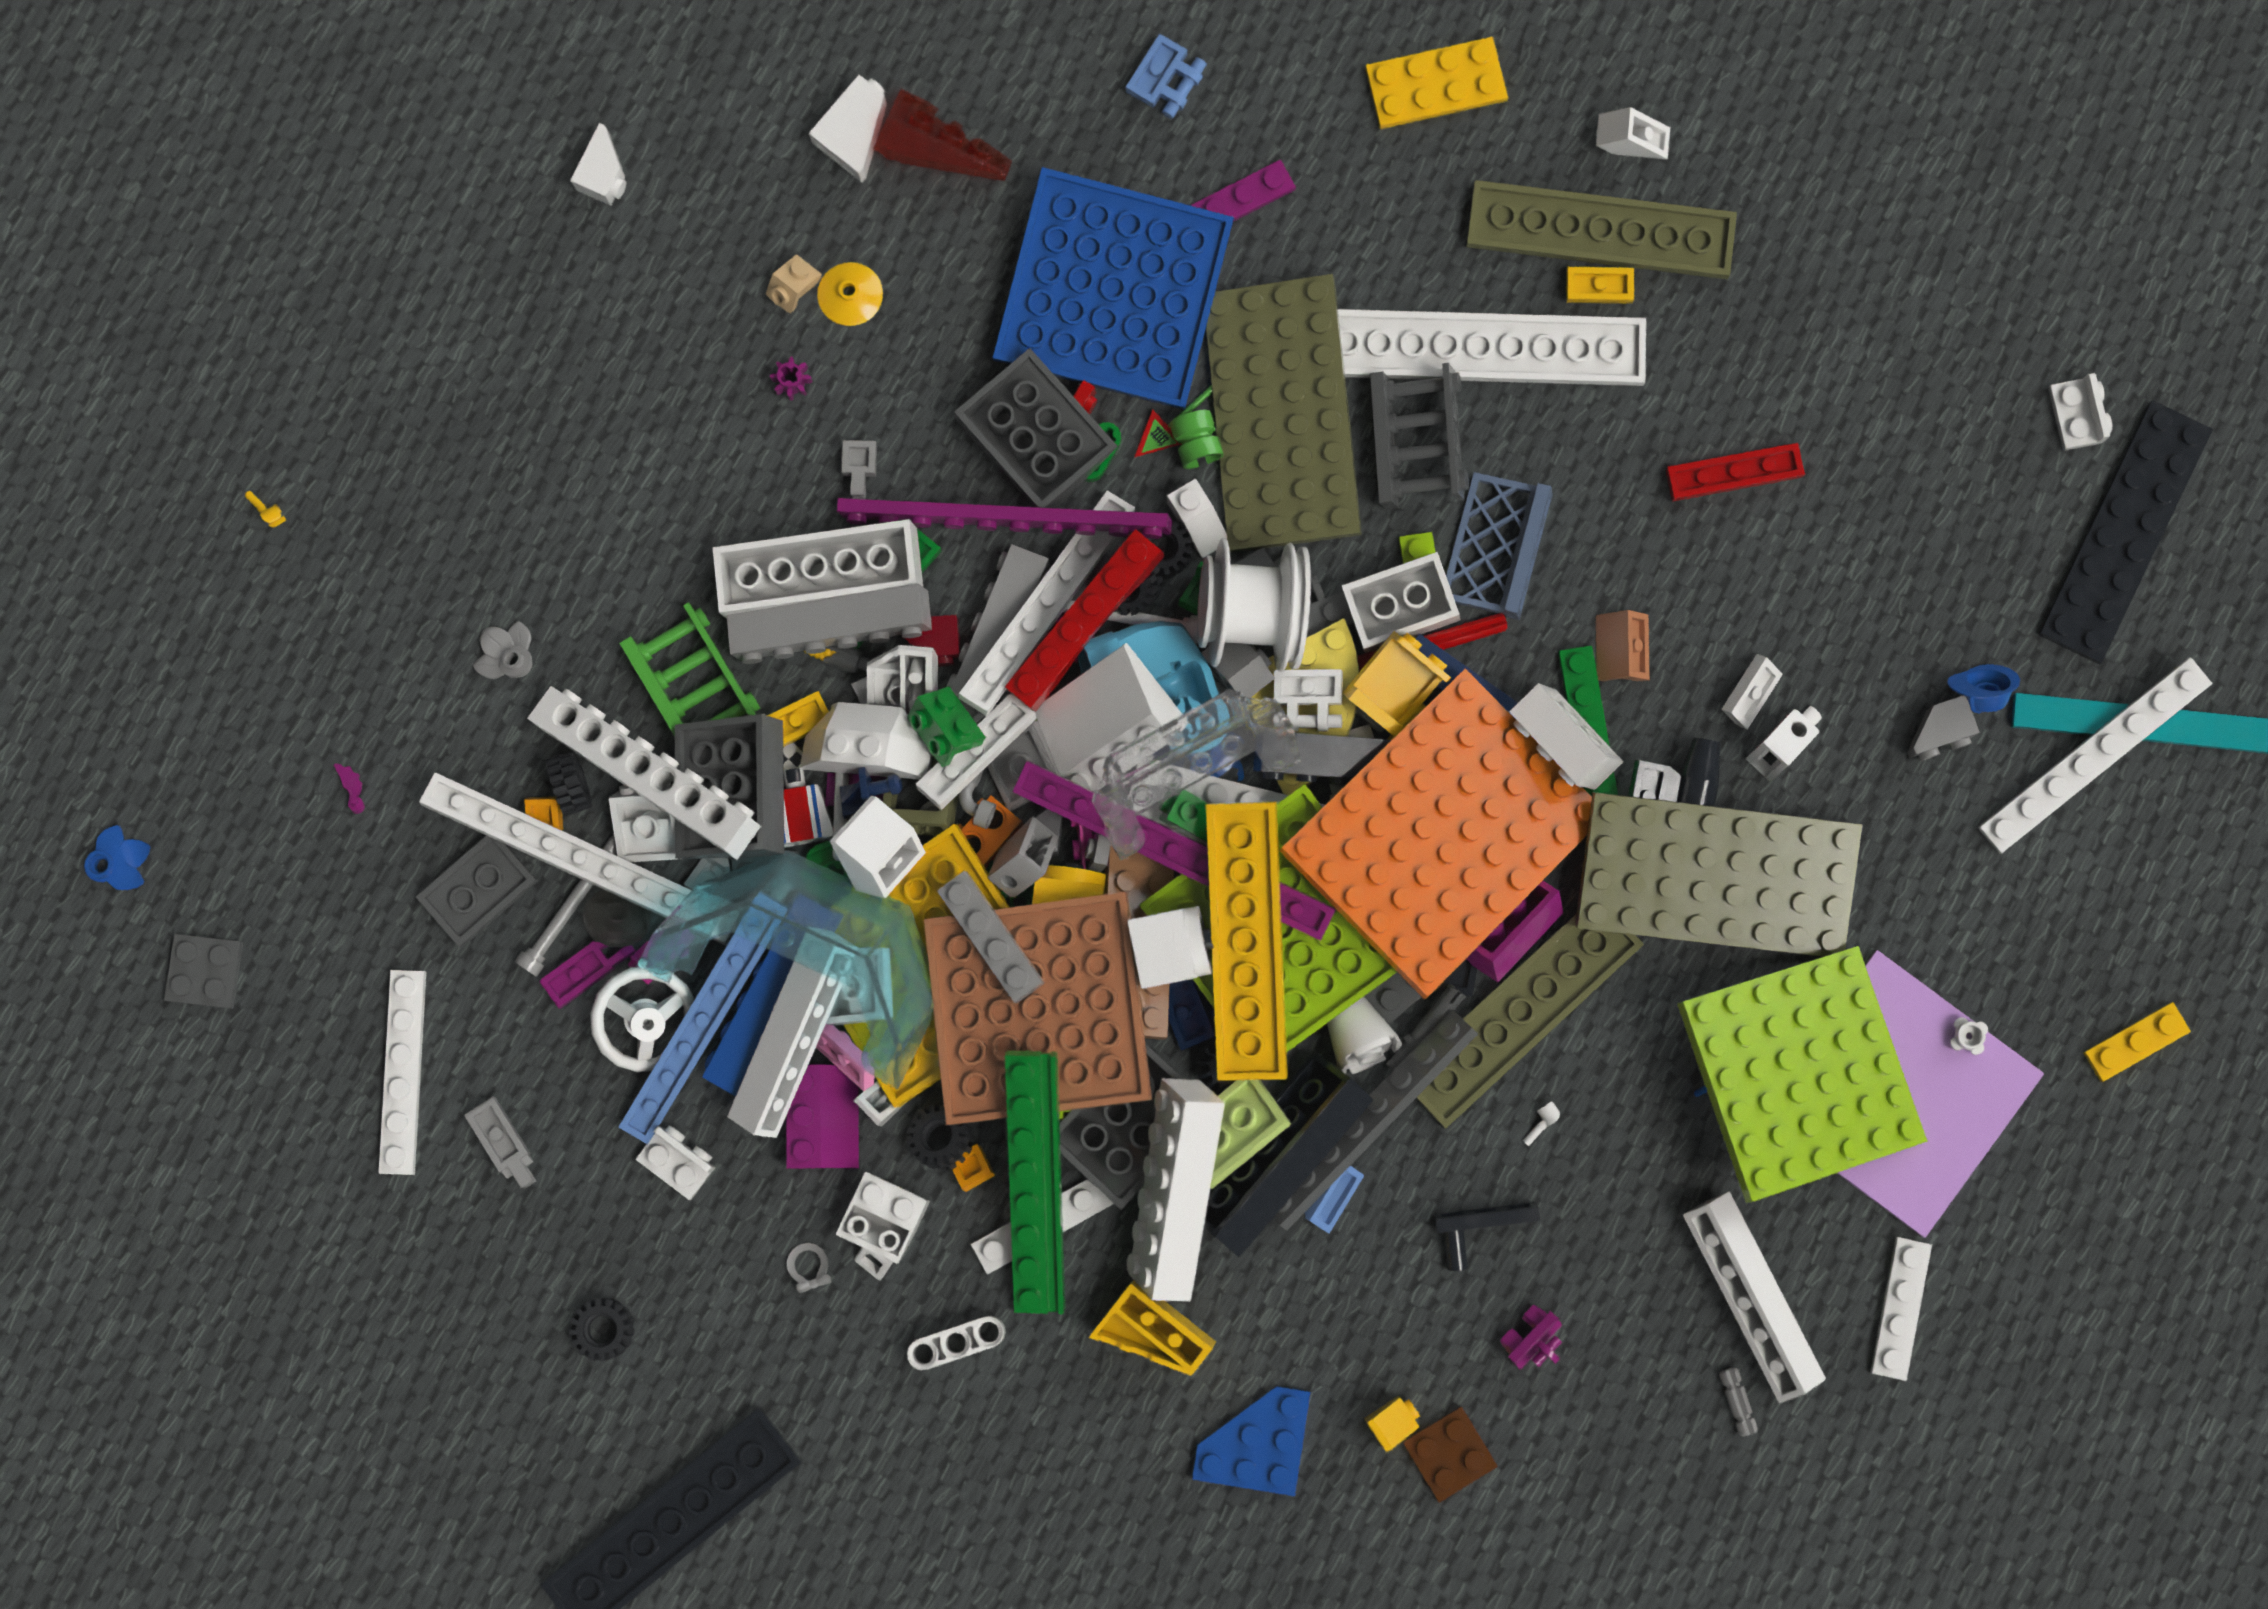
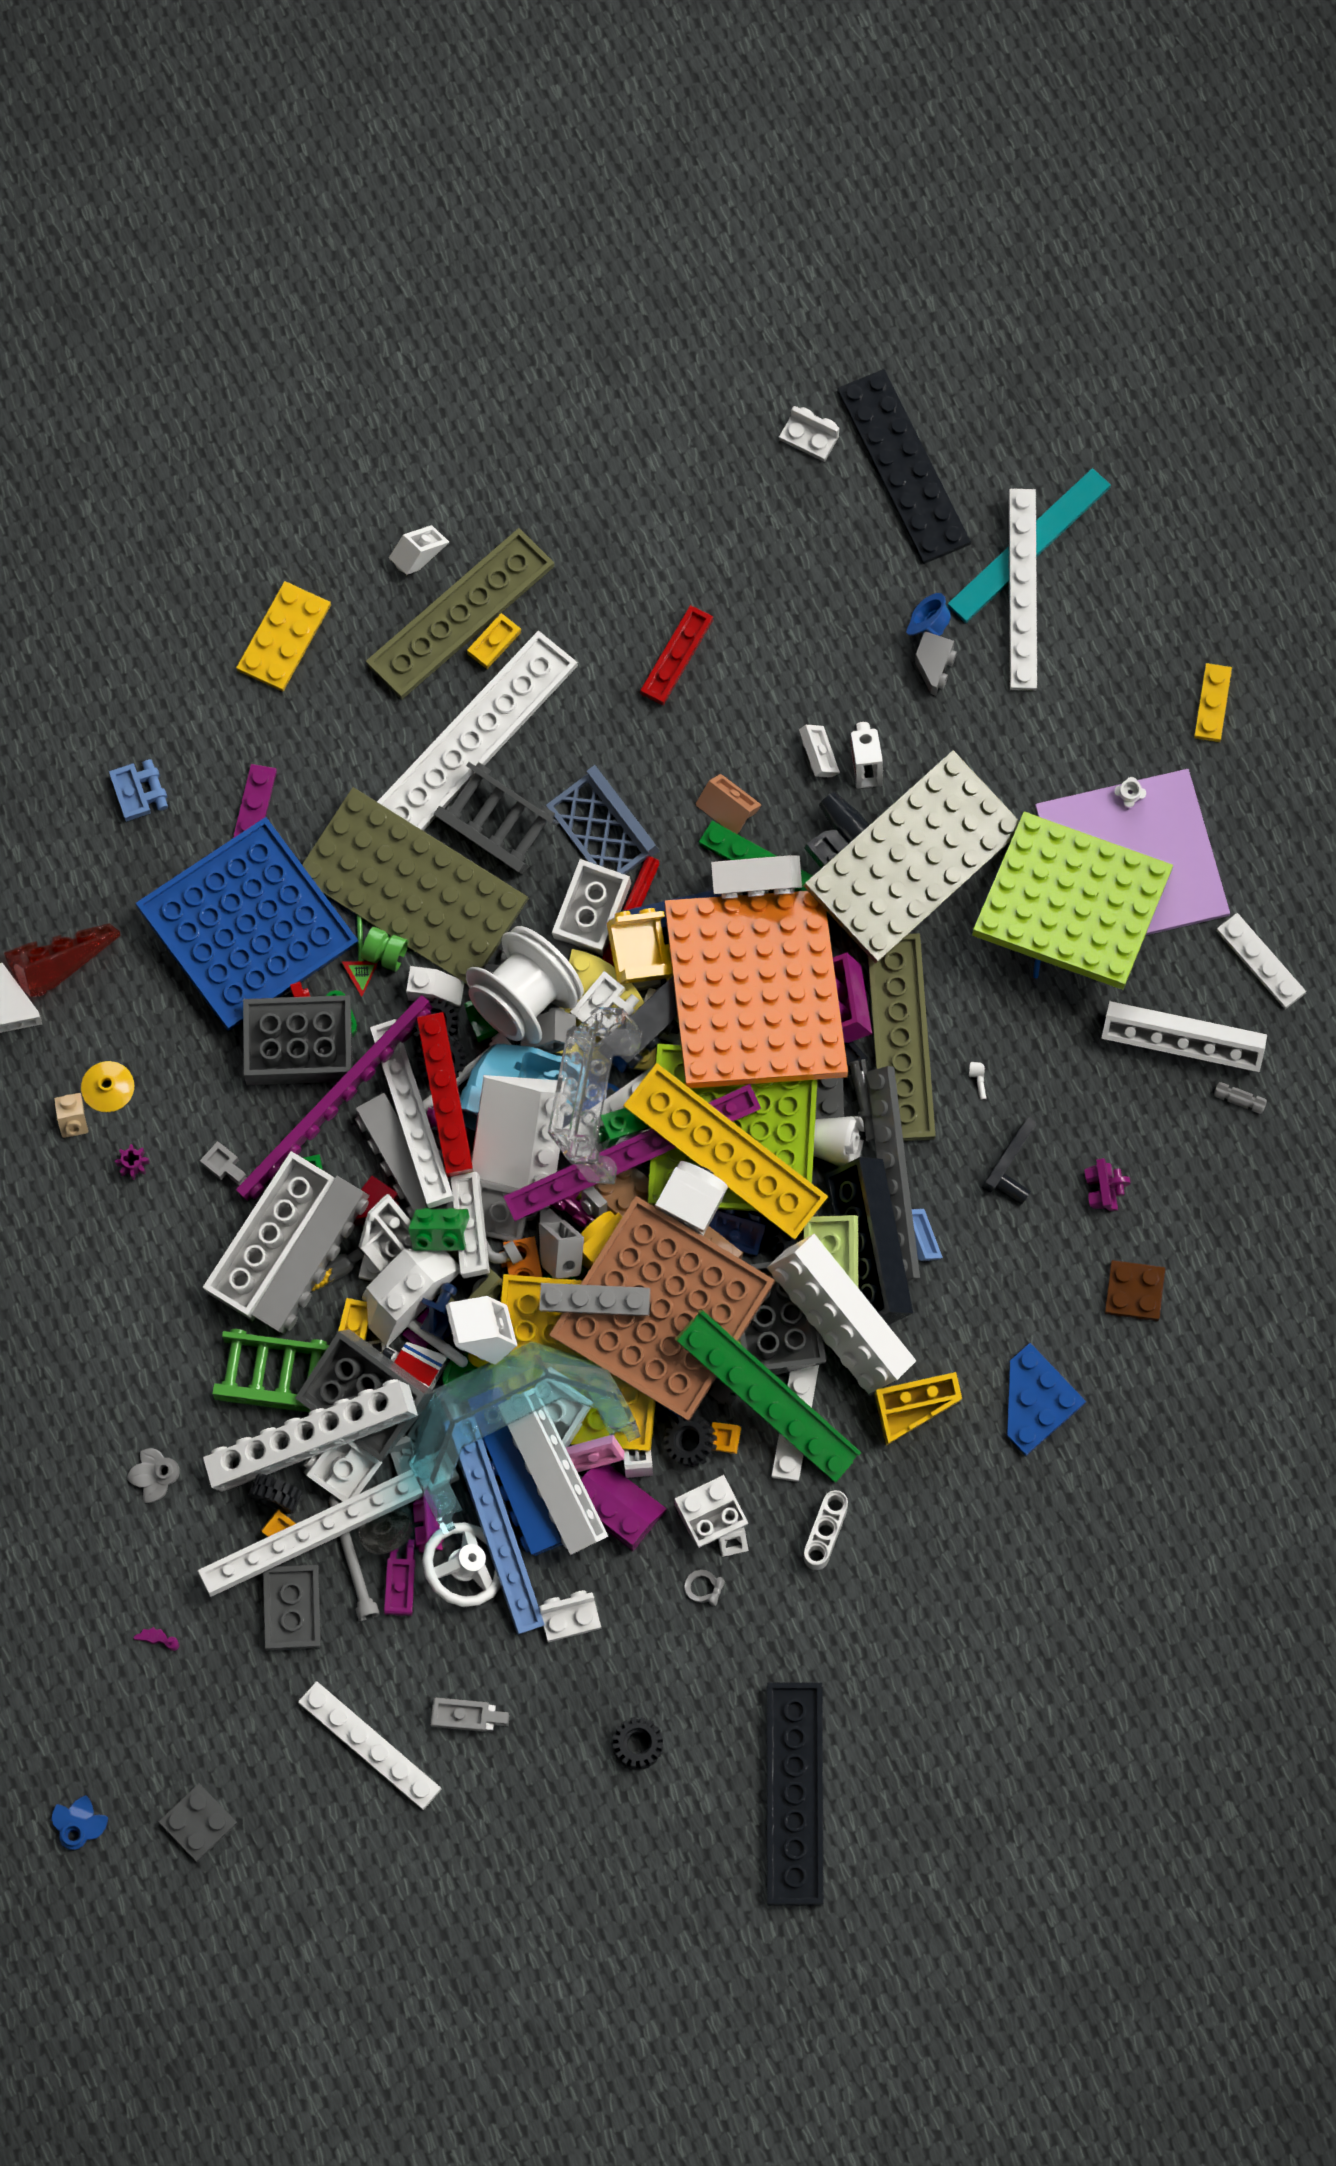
camera: 55 degrees left, 10 degrees down
(1393, 1422) = (1088, 1307): yellow slope -> none
(1416, 546) = (563, 874): lime plate -> none

